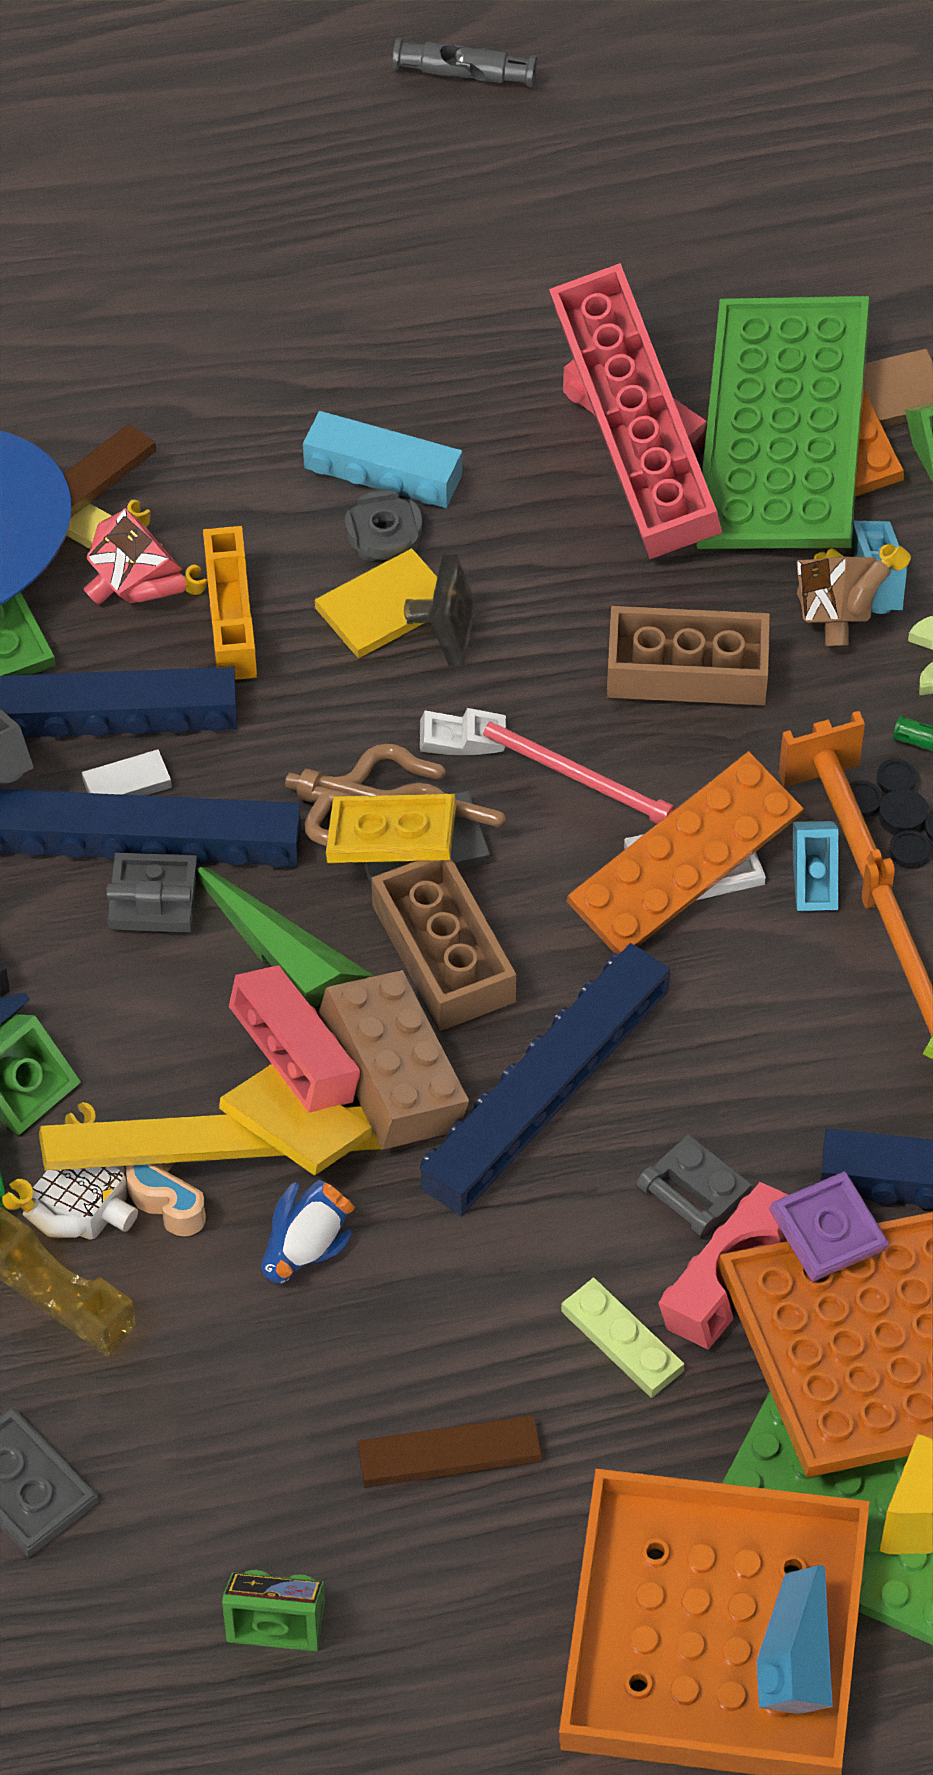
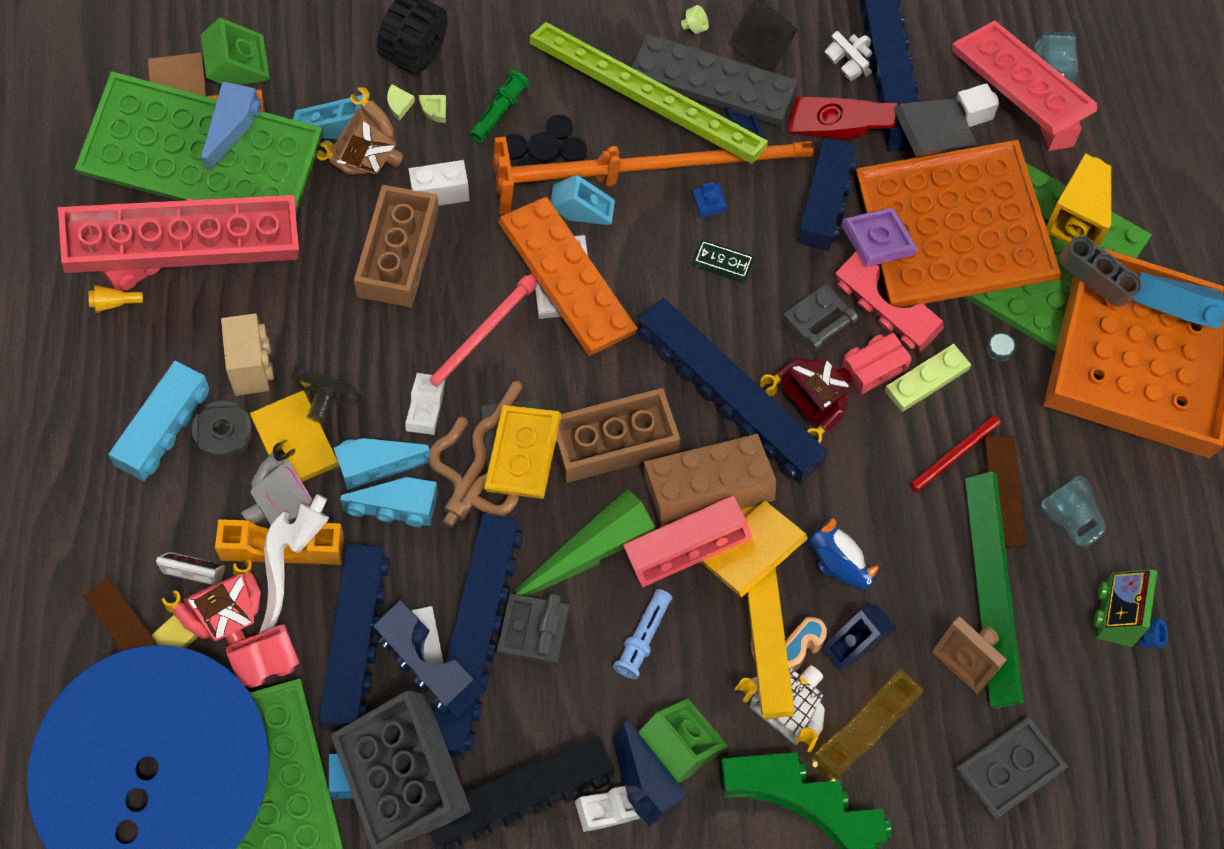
camera: 85 degrees left, 10 degrees up
(76, 612) = (263, 656): none -> coral brick
(113, 745) = (448, 681): none -> dark blue arch
(144, 1011) = (640, 648): none -> light blue pin
(173, 1398) = (970, 654): none -> medium nougat tile
(191, 518) = (190, 568): none -> white slope
(191, 1270) = (858, 636): none -> dark blue slope
(227, 600) = (279, 536): none -> white piece
(244, 1659) = (1156, 635): none -> blue tile
(287, 1438) = (994, 585): none -> green tile
(294, 593) = (277, 489): none -> light grey torso
(314, 722) = (400, 500): none -> medium azure slope
(360, 676) = (374, 459): none -> medium azure slope
(431, 1537) = (1073, 508): none -> clear light blue piece
(485, 518) = (247, 354): none -> tan brick
(501, 1382) = (954, 454): none -> red bar
(546, 373) = (107, 298): none -> yellow cone
(558, 1180) = (815, 389): none -> dark red torso
(627, 1258) = (876, 362): none -> coral brick
(696, 1434) = (1001, 346): none -> tile
(763, 1054) = (723, 261): none -> clear green tile
(801, 688) = (443, 179): none -> white brick
(815, 1486) = (1113, 274): none -> dark grey beam
(823, 429) = (230, 120): none -> medium blue slope
(865, 1026) = (709, 200): none -> blue tile

